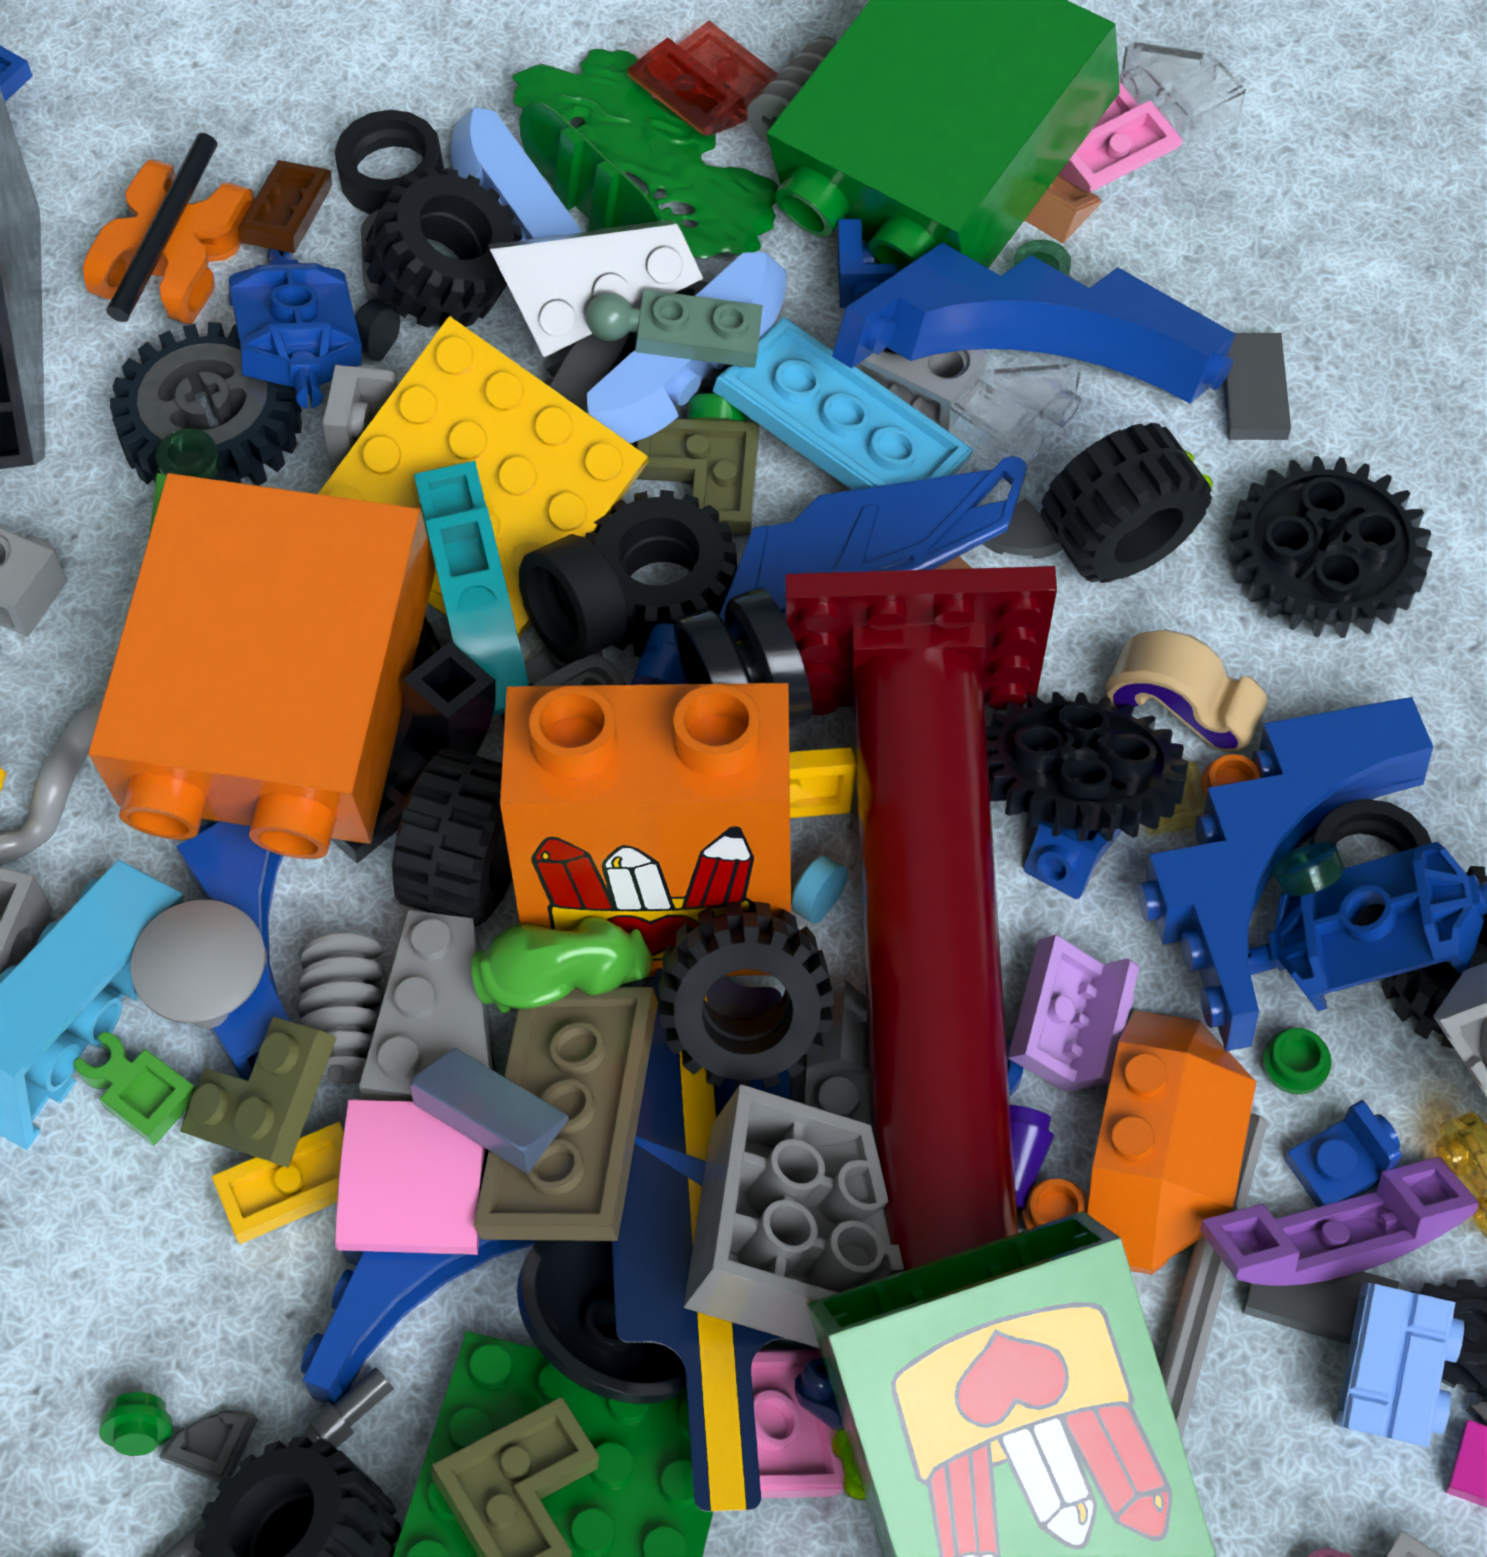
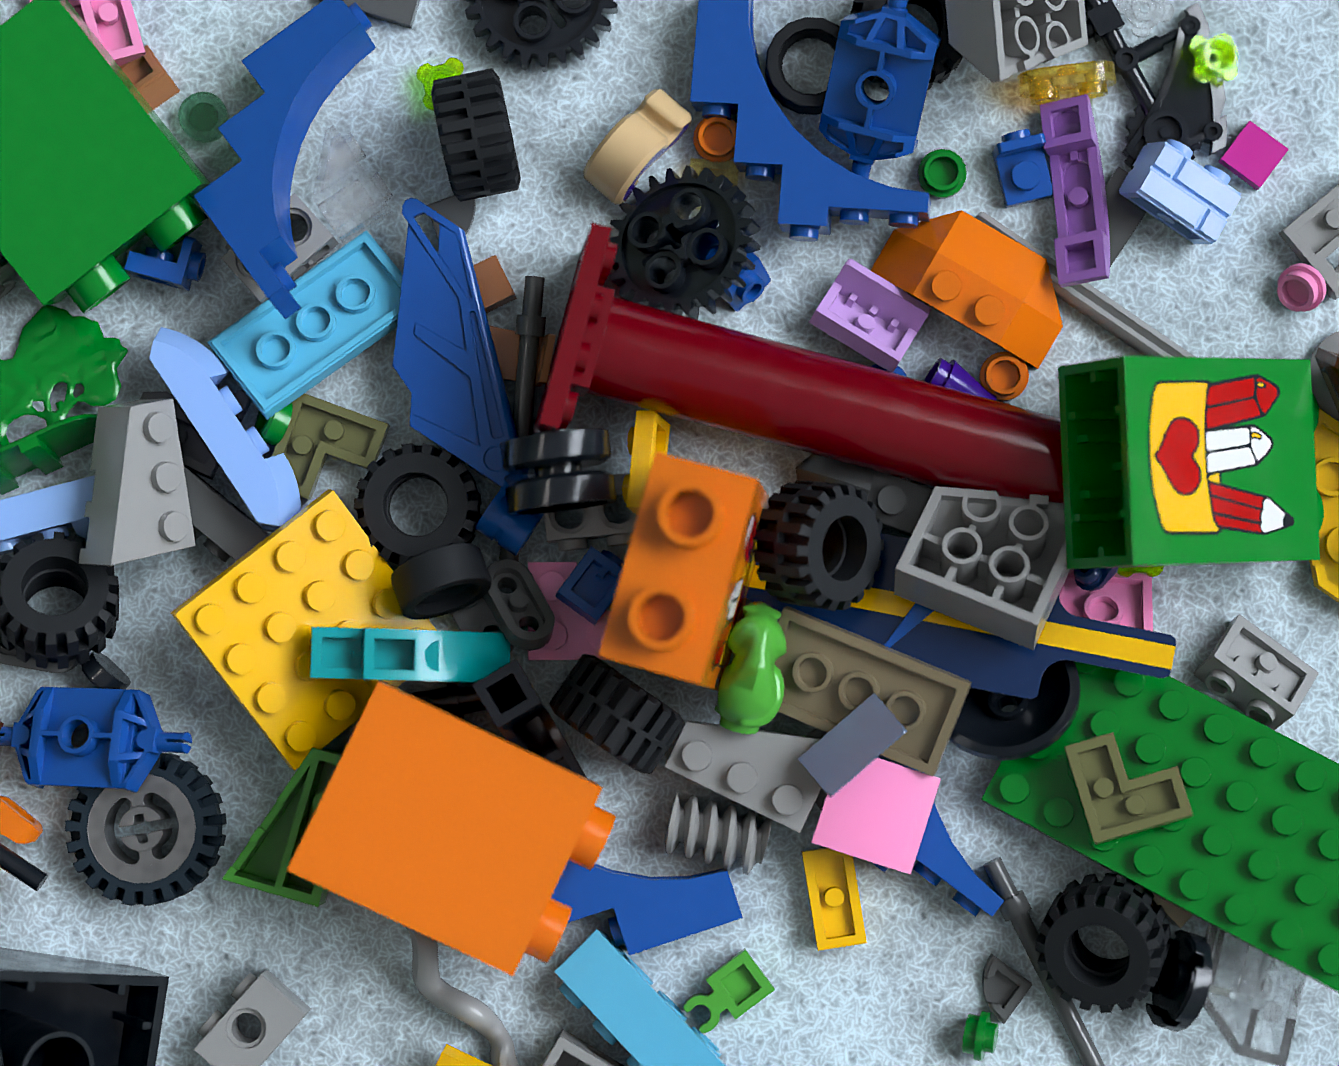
camera: 75 degrees left, 25 degrees up
(188, 454) = (209, 852): clear green tile -> none
(198, 962) = (663, 928): light grey dish -> none
(271, 1108) = (785, 901): olive plate -> none
(352, 404) = (214, 714): light grey bracket -> none
(681, 326) = (216, 429): sand green plate -> none
(818, 888) = (709, 455): medium azure tile -> none
(1309, 869) = (820, 114): tile -> none

